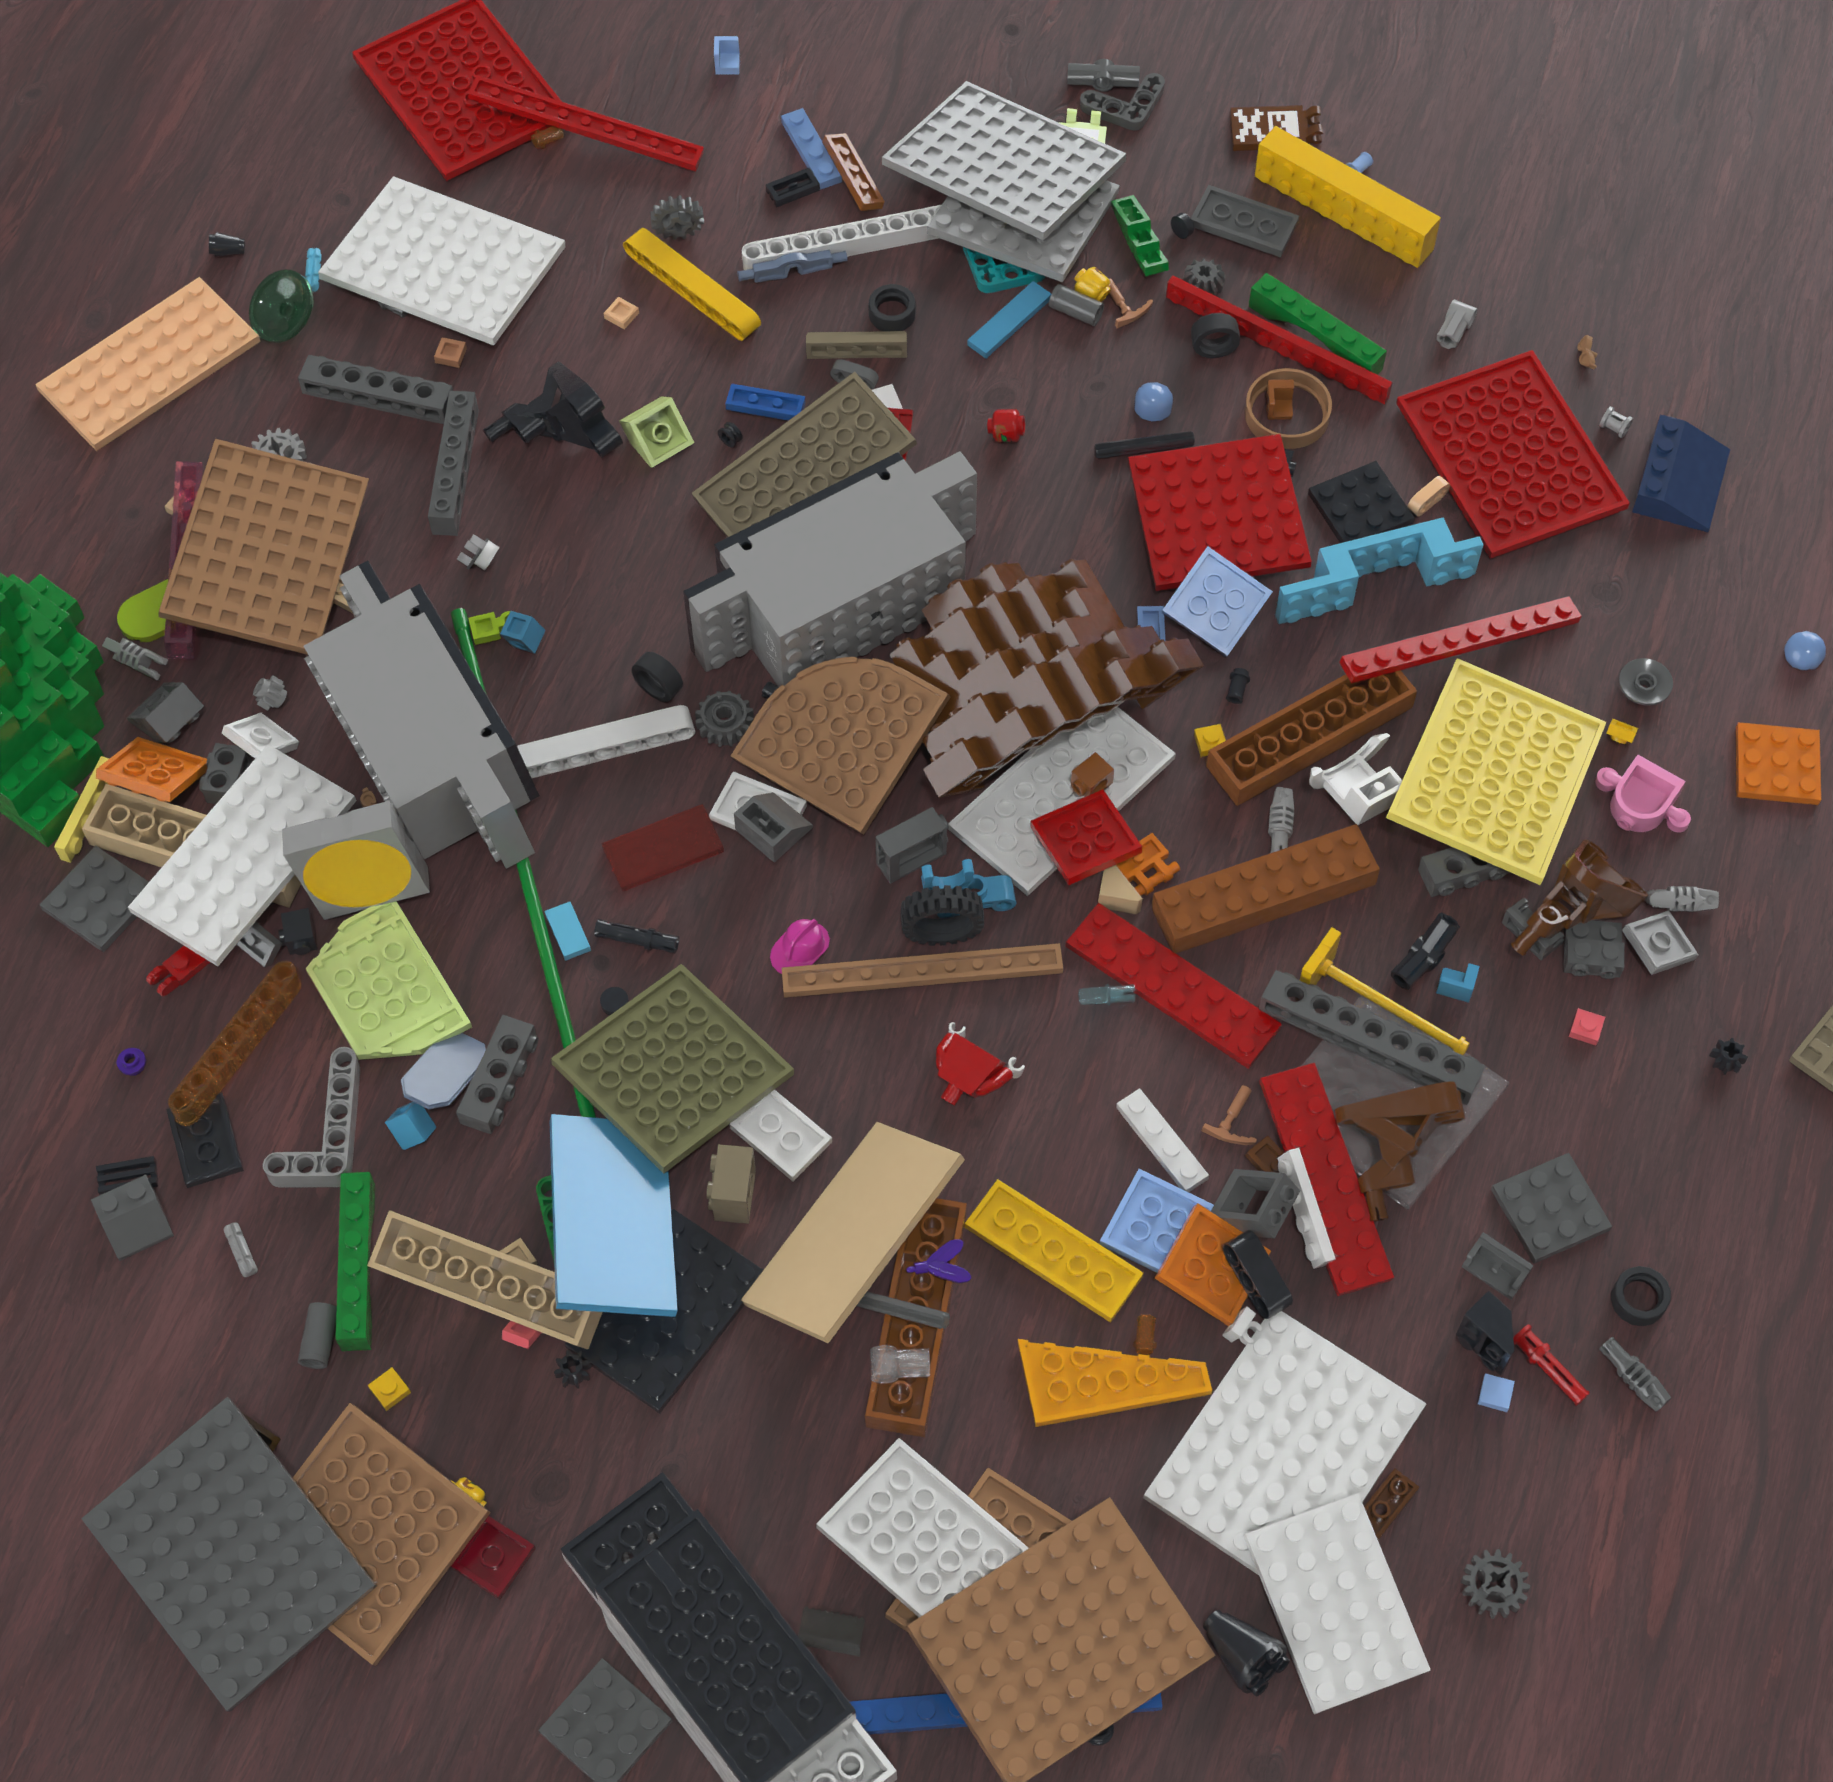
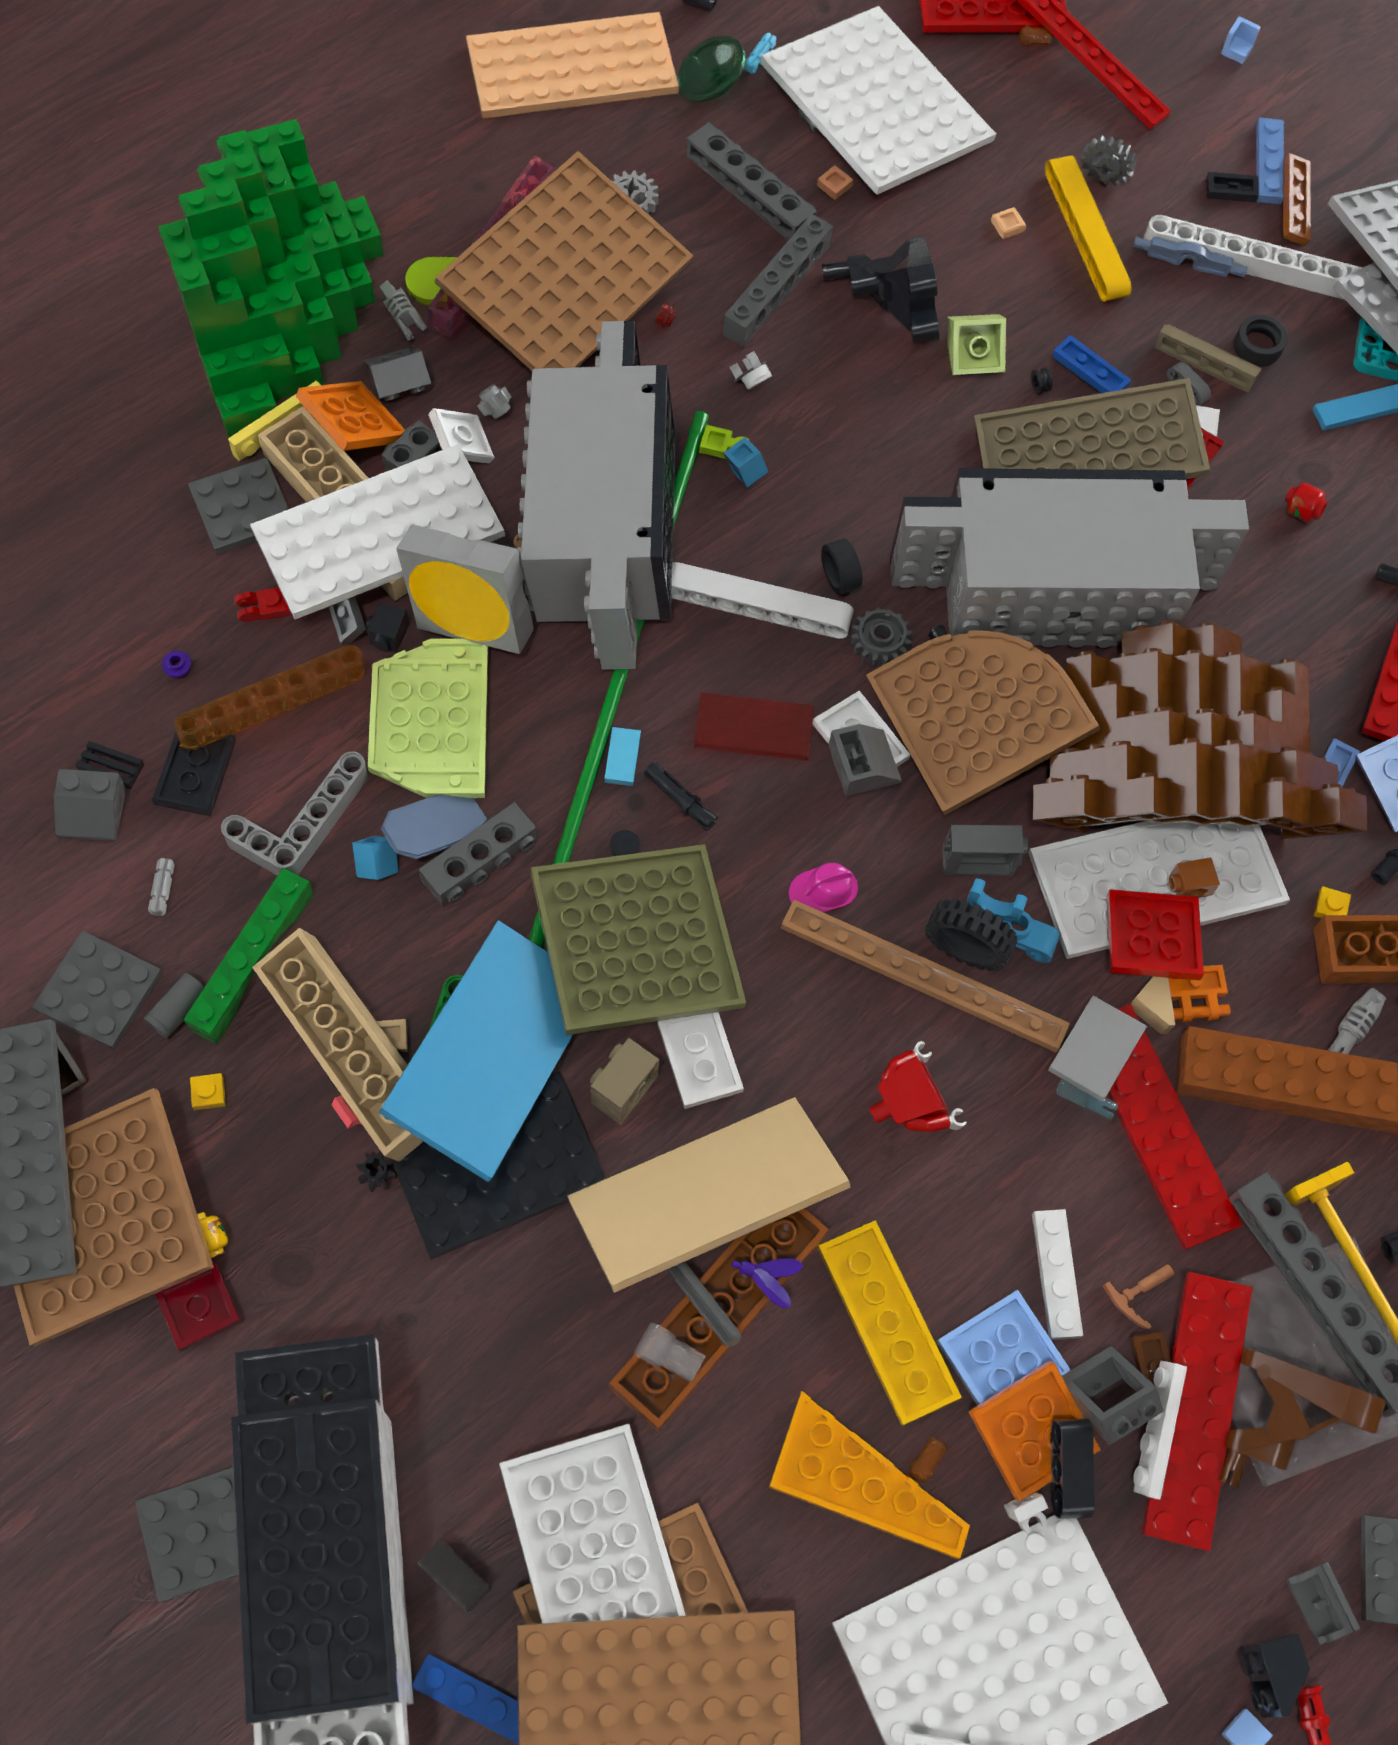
camera: 25 degrees right, 5 degrees up
(240, 1361) = (97, 990): none -> dark grey plate
(373, 542) = (666, 315): none -> clear red plate
(1092, 950) = (1097, 1048): none -> light grey tile

